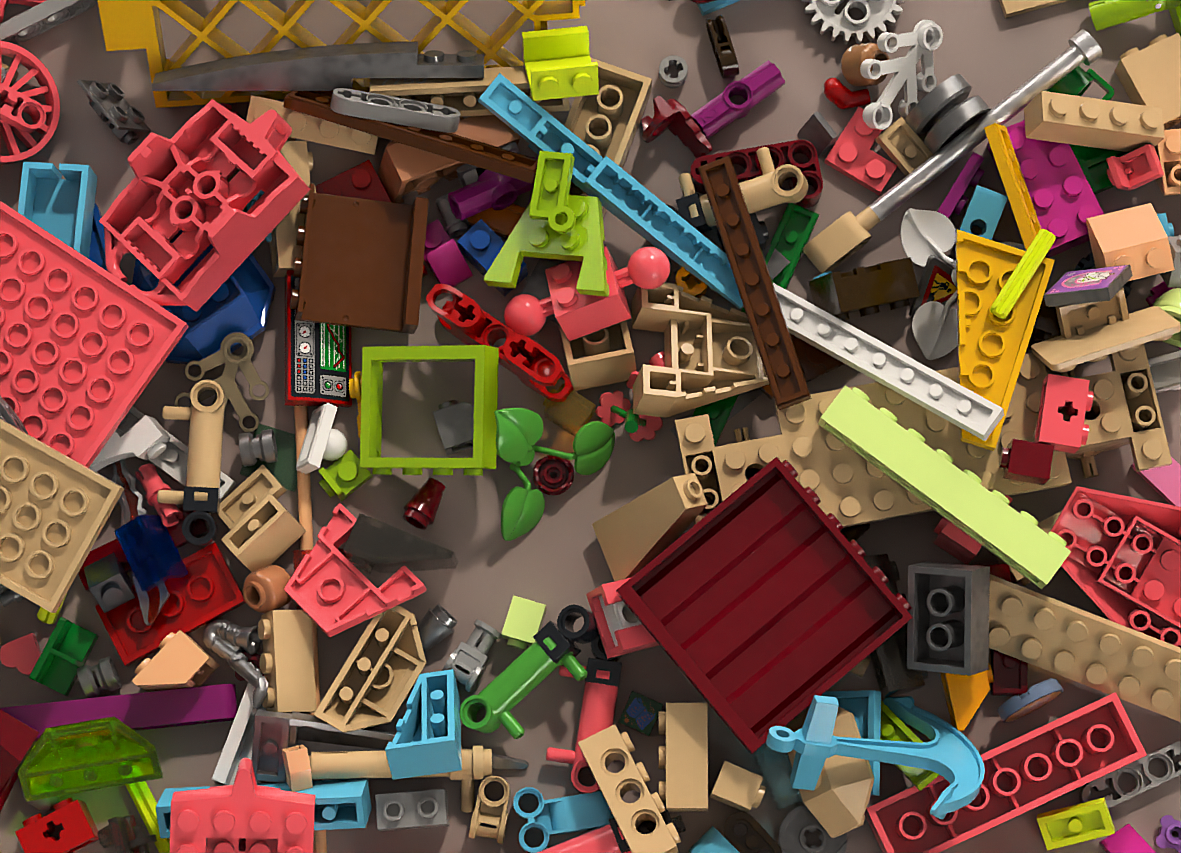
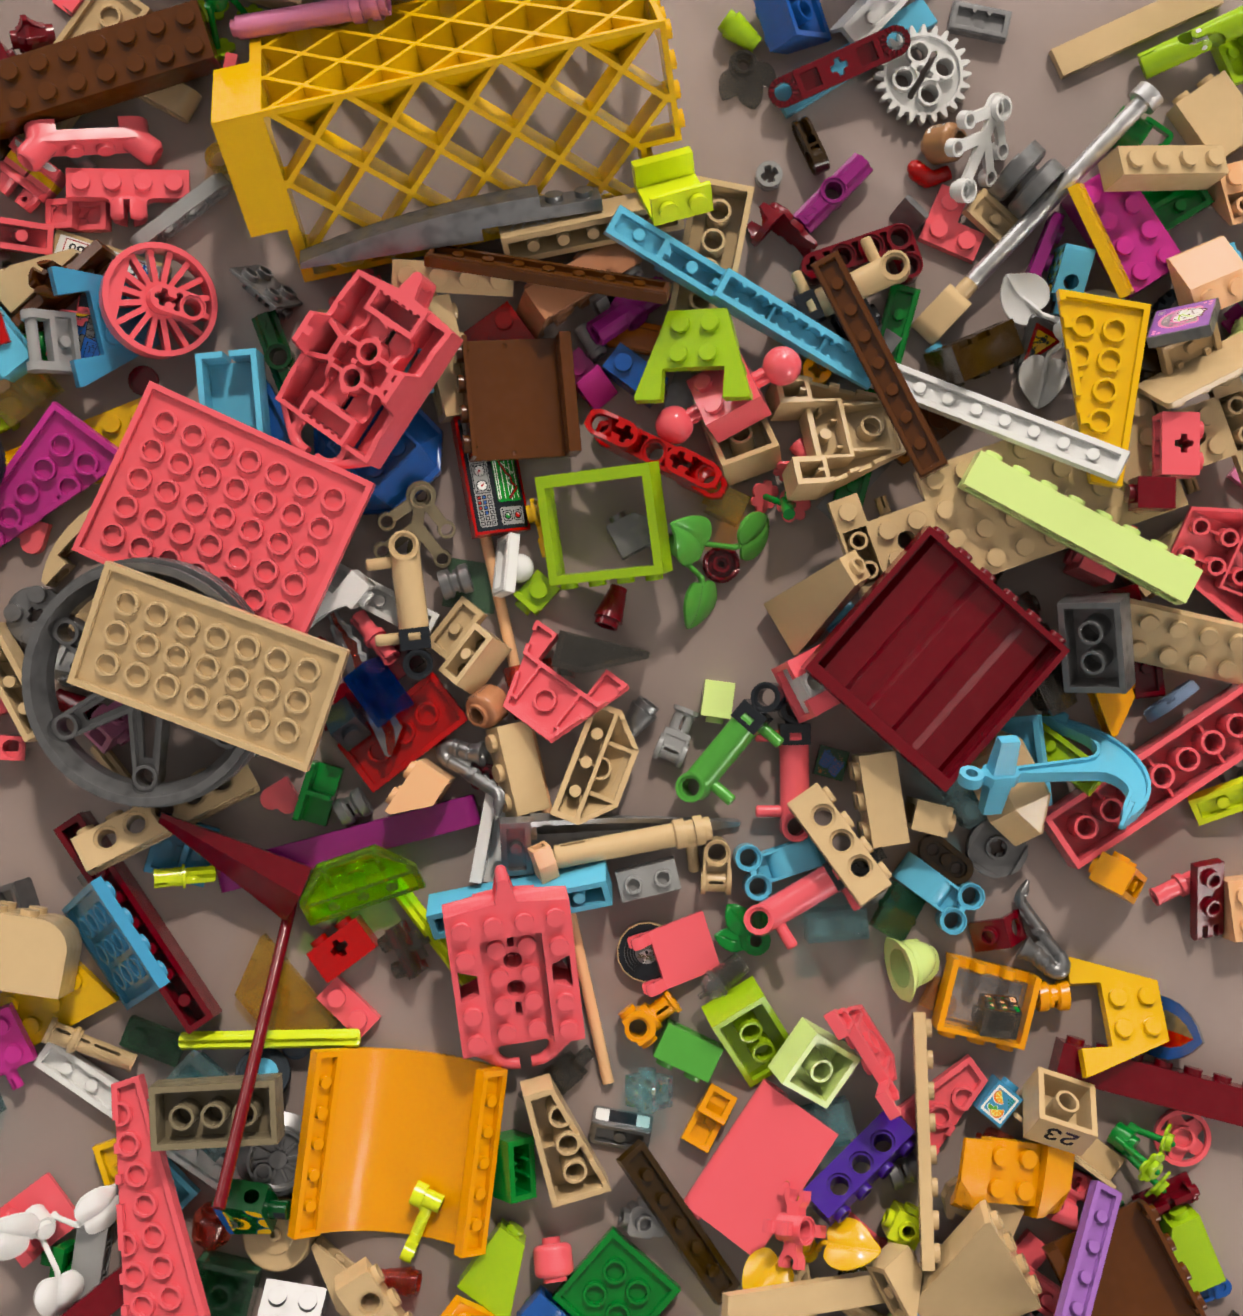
camera: 15 degrees left, 10 degrees up
(109, 163) = (273, 340): none -> dark green piece
(395, 110) = (527, 253): light grey beam -> none
(430, 730) = (654, 811): medium azure wedge -> none
(552, 189) = (685, 307): lime hinge -> none
(1023, 273) = (1126, 321): neon yellow axle -> none
(1134, 168) = (1202, 204): coral bracket -> none

